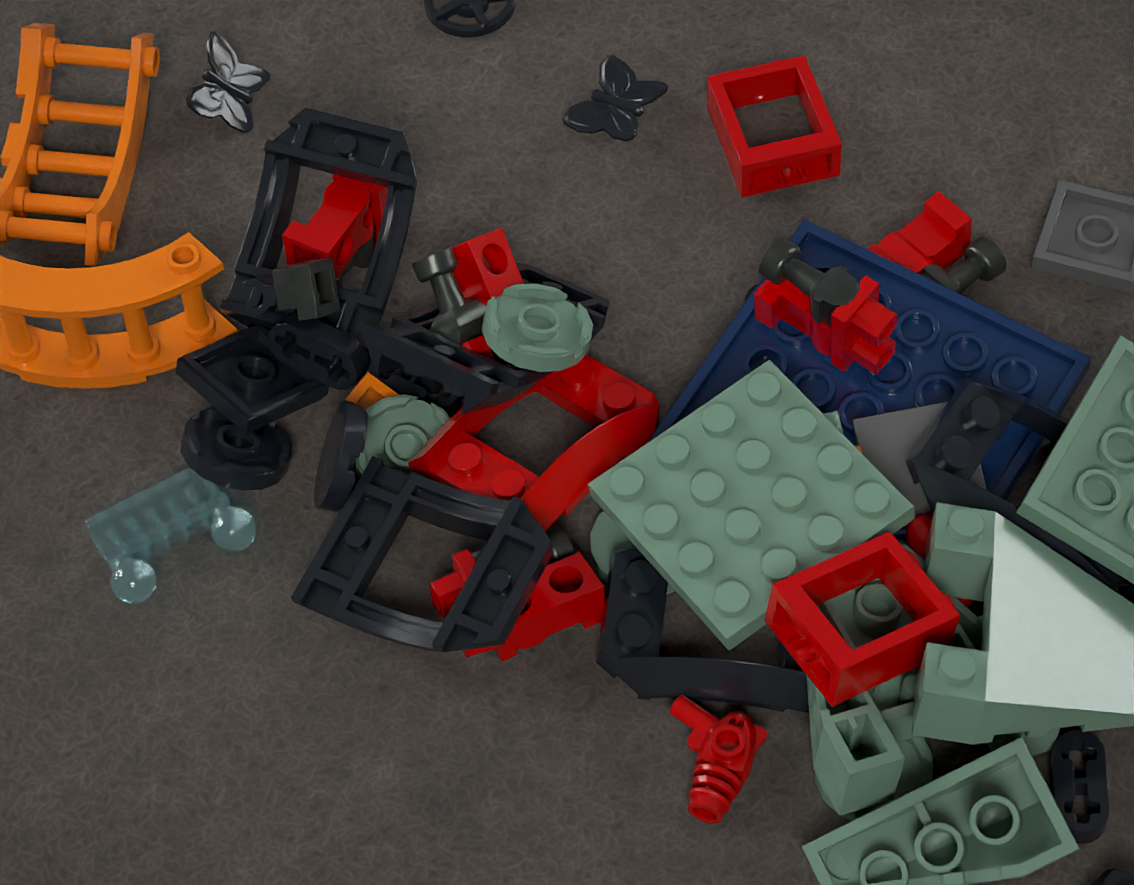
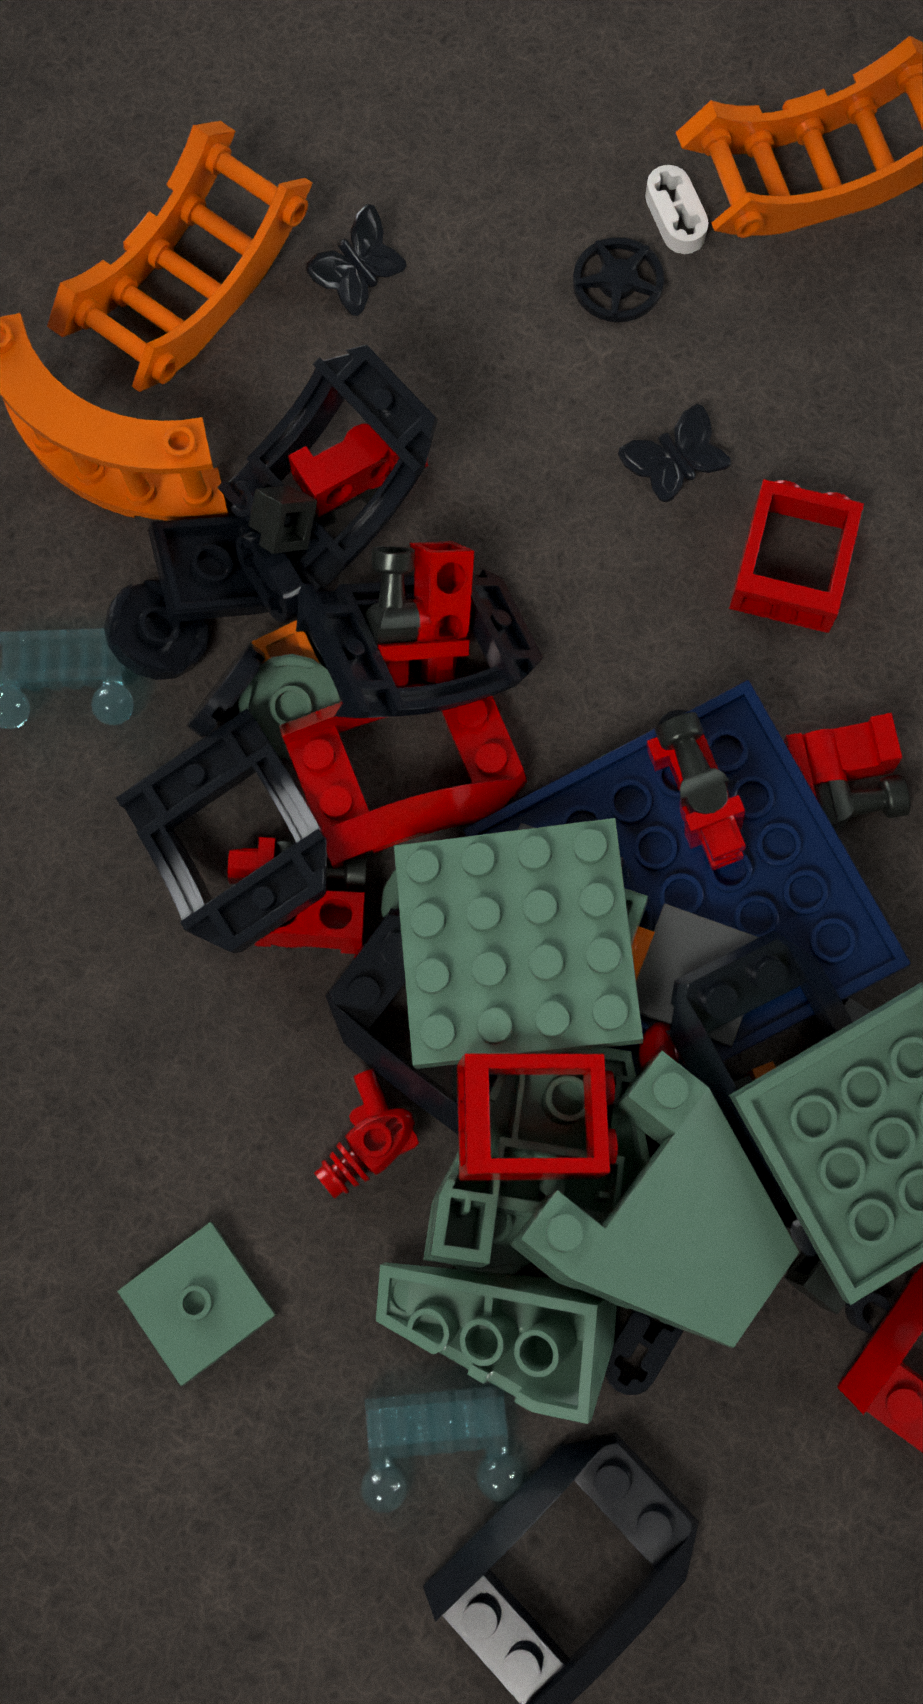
camera: 30 degrees right, 20 degrees up
(537, 328) = (447, 666): sand green tile -> none

